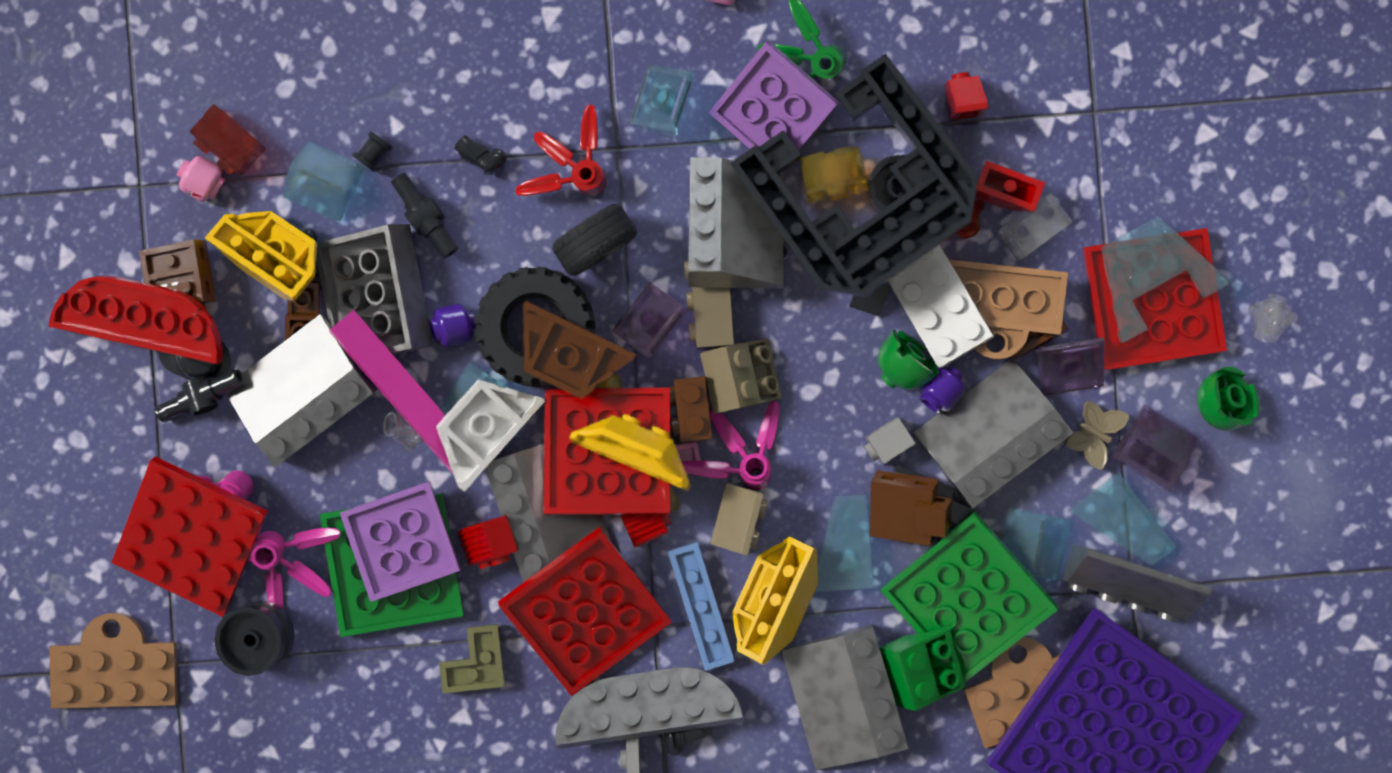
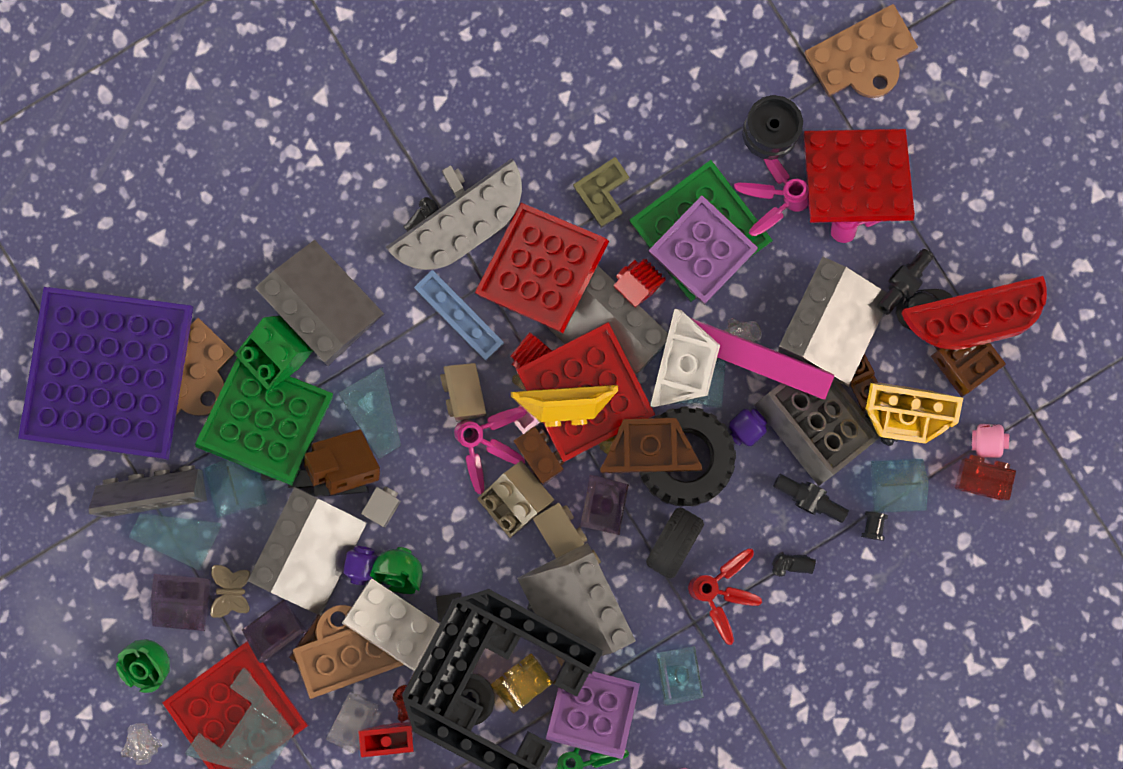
camera: 150 degrees right, 5 degrees down
(775, 599) = (407, 347): yellow wedge -> none

